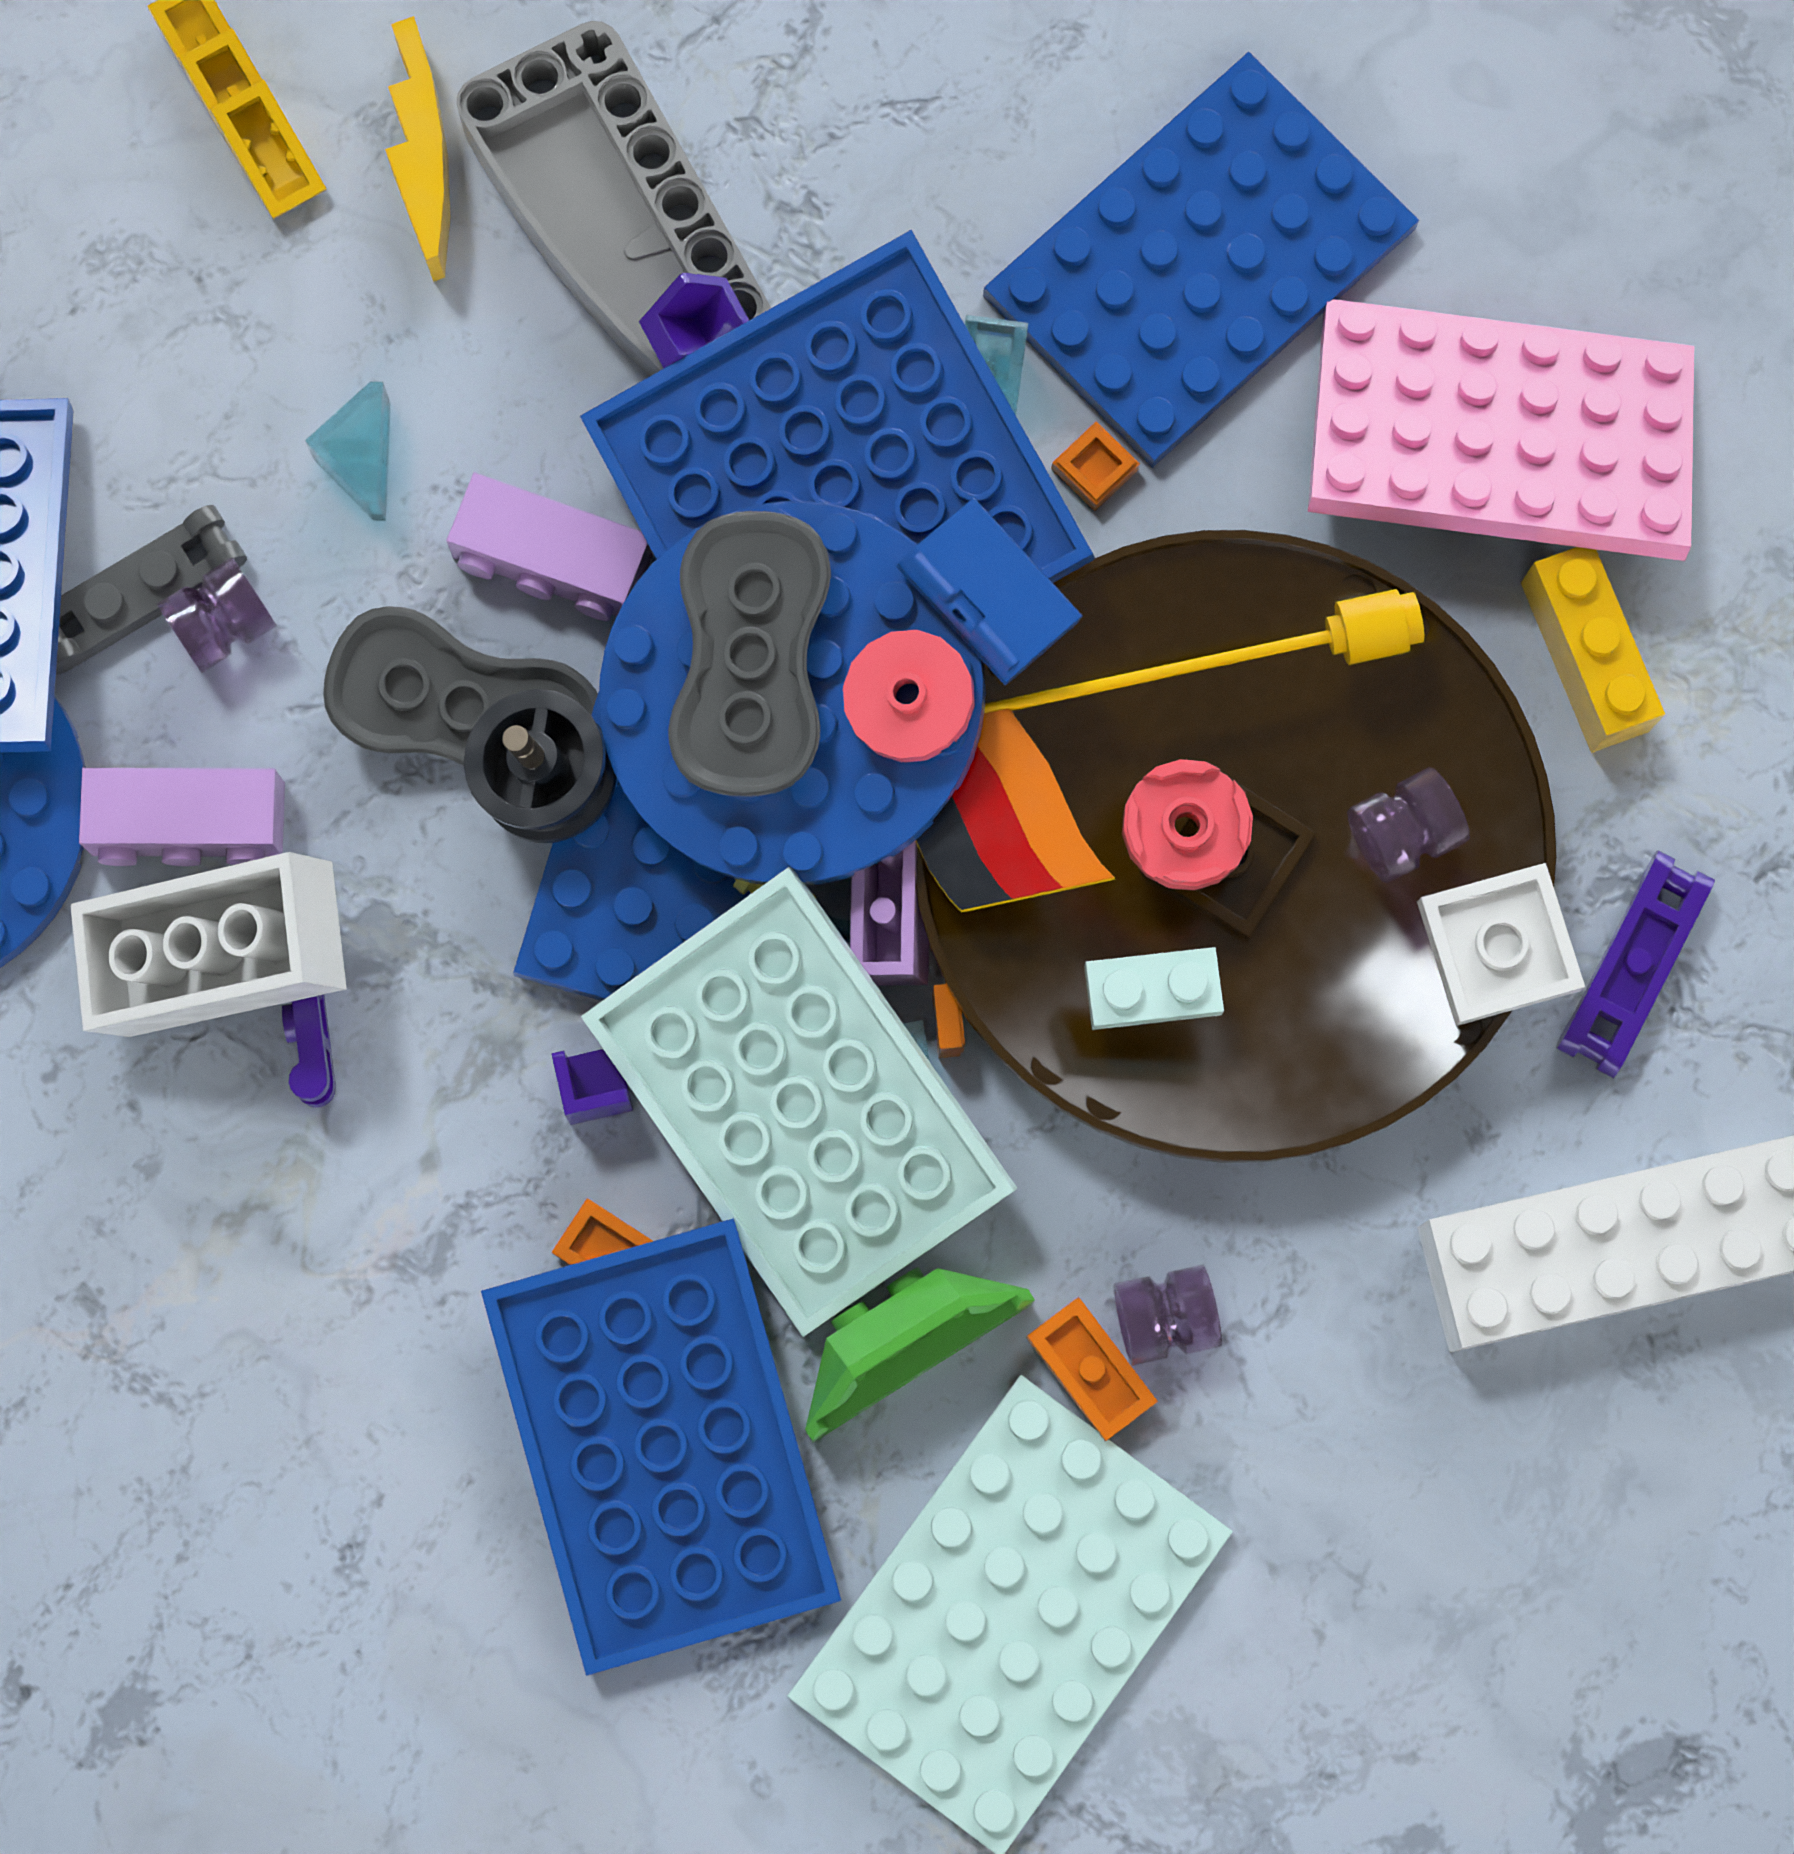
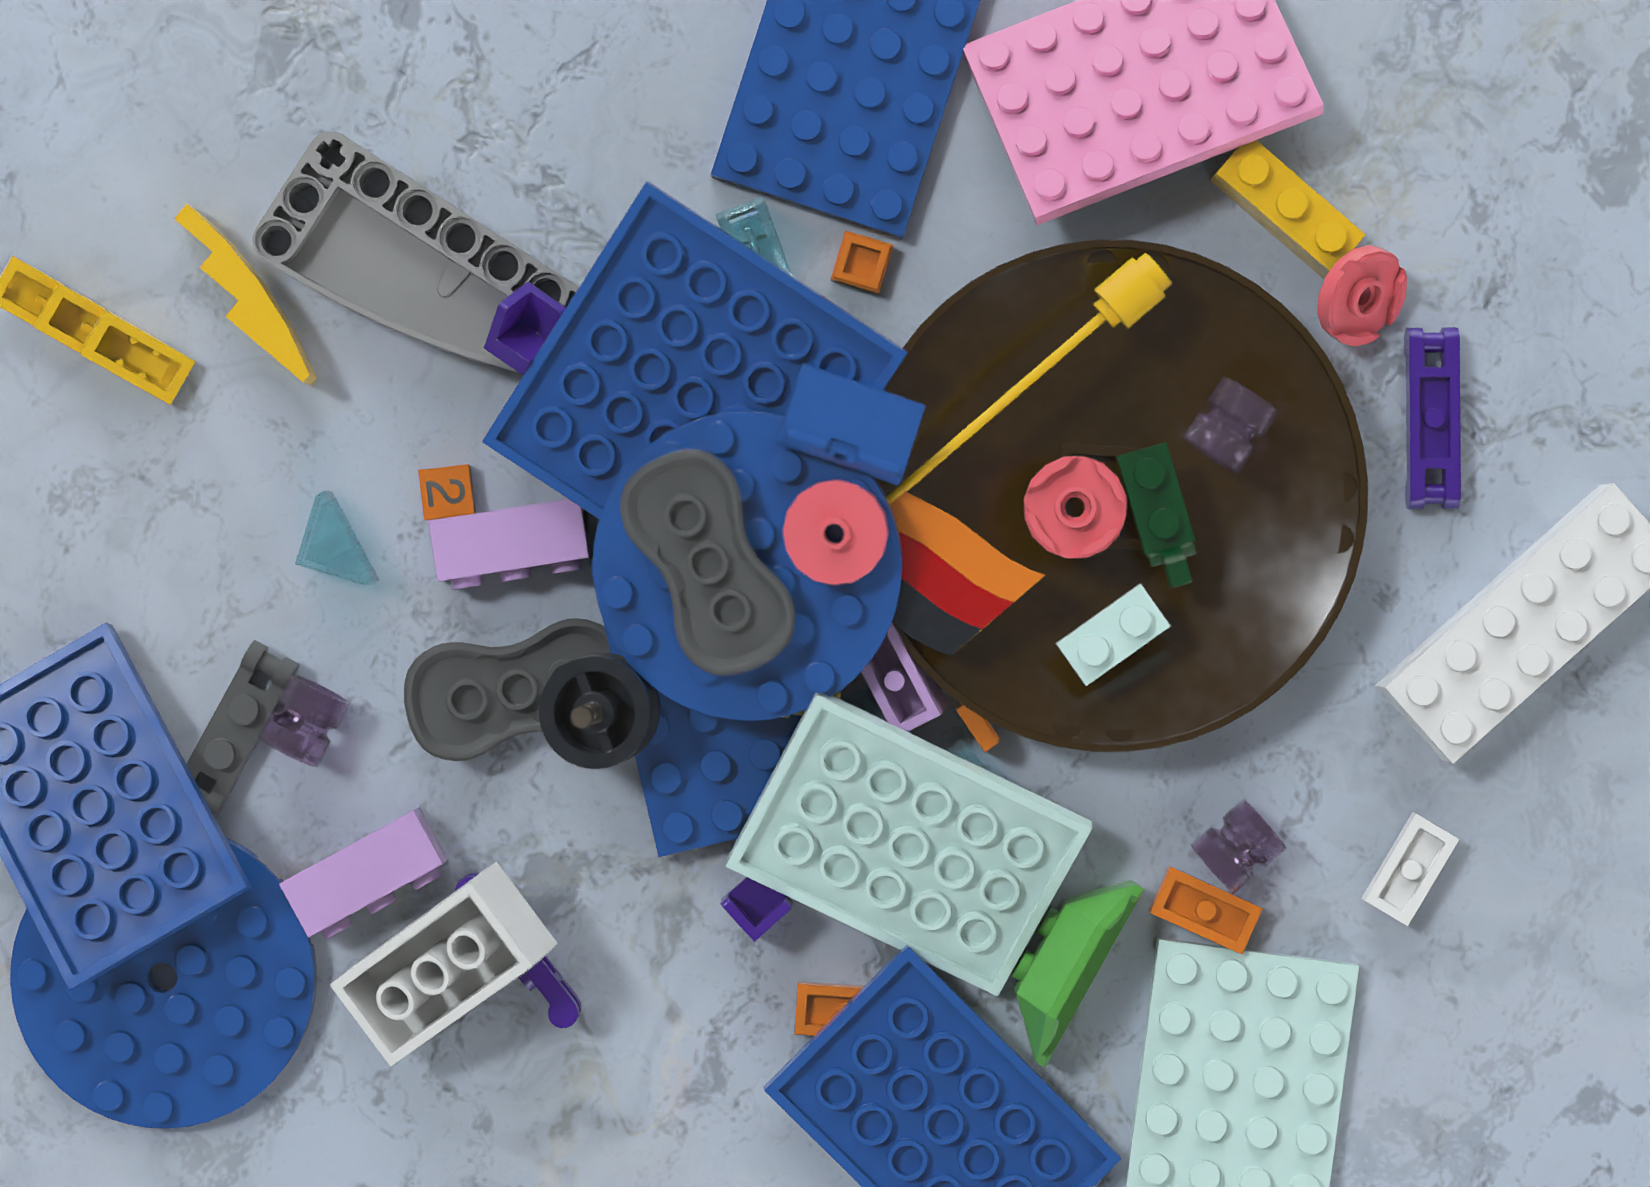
camera: 25 degrees left, 10 degrees up
(514, 458) = (447, 492): none -> orange tile
(1278, 879) = (1158, 510): none -> dark green hinge
(1350, 1451) = (1410, 868): none -> white plate
(1500, 944) = (1337, 472): white plate -> none
(1643, 799) = (1361, 295): none -> coral plate

